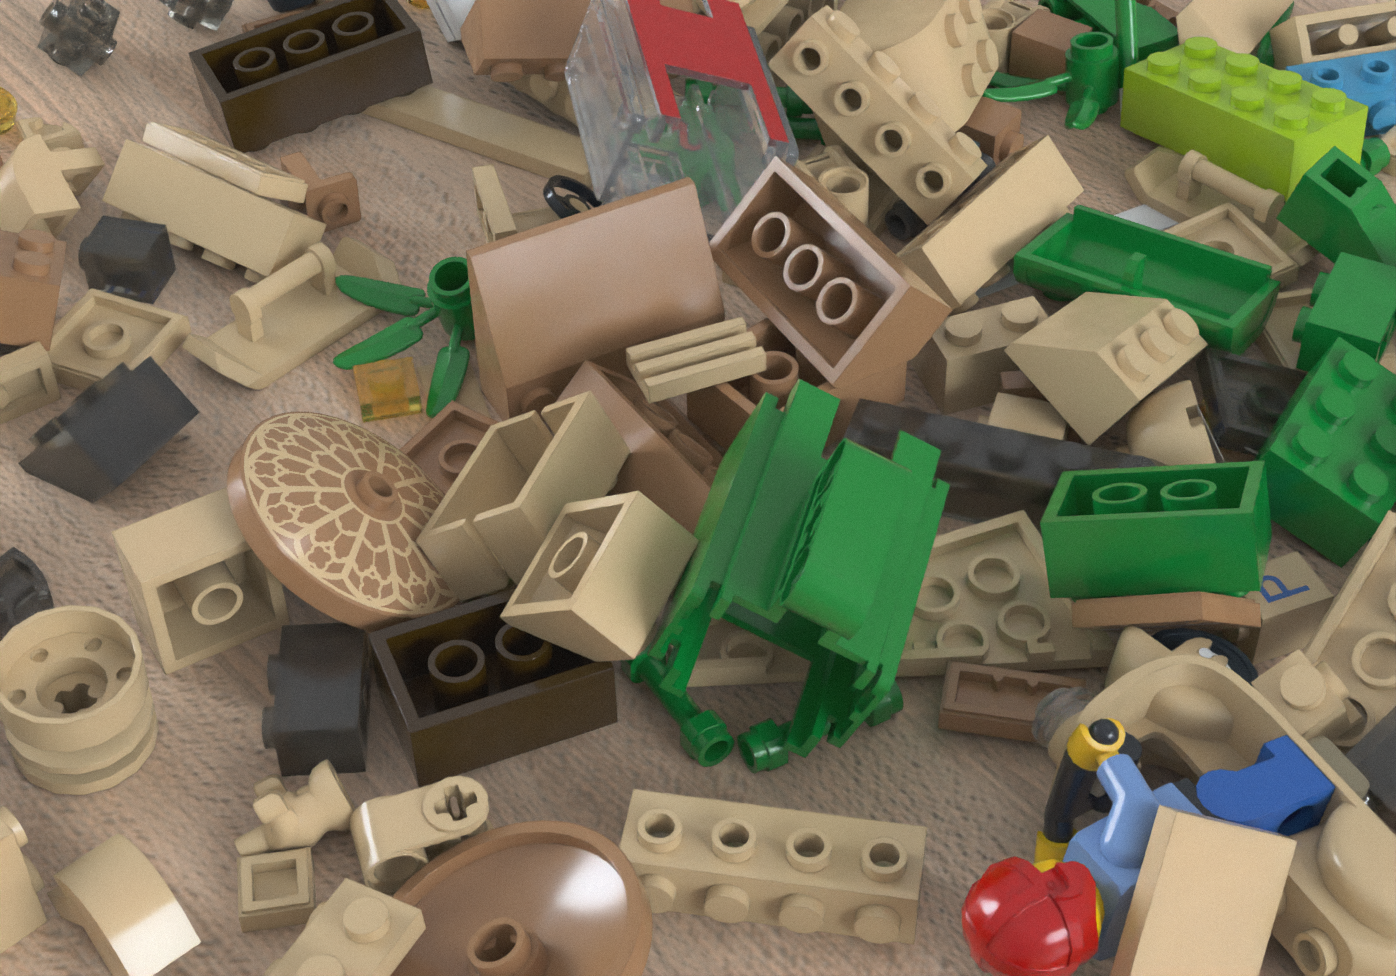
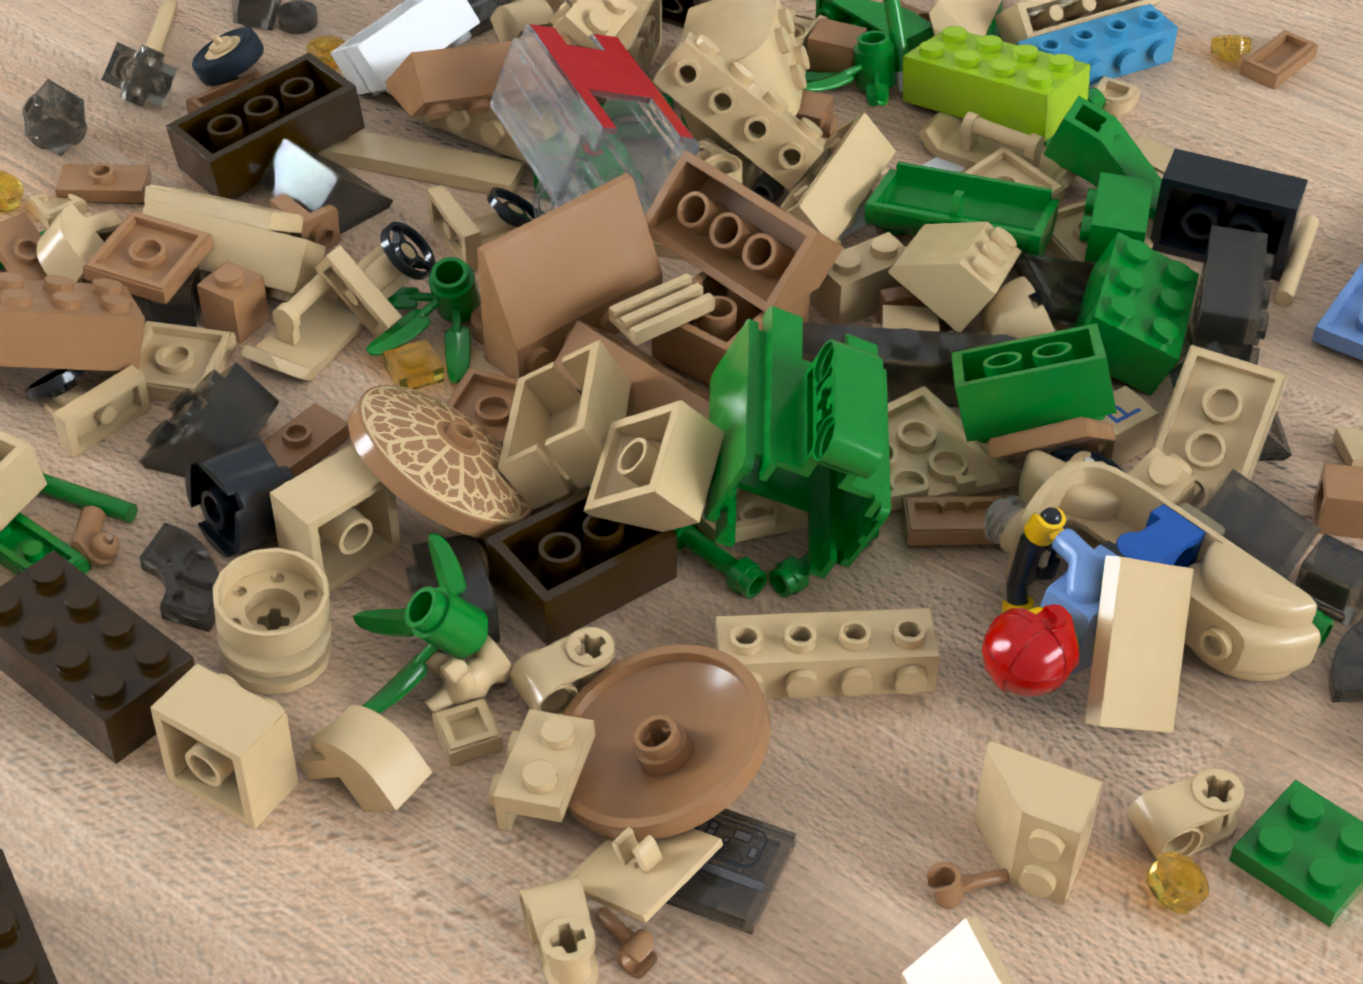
camera: 15 degrees left, 0 degrees up
(83, 512) = (235, 496): none -> black brick
(108, 210) = (149, 256): none -> medium nougat tile
(110, 113) = (104, 182): none -> medium nougat plate
(195, 277) = (233, 300): none -> medium nougat brick
(195, 470) = (307, 439): none -> medium nougat plate
(262, 738) = (433, 616): none -> green plant
(348, 138) = (319, 181): none -> clear smoke slope
(373, 267) = (378, 275): none -> tan piece

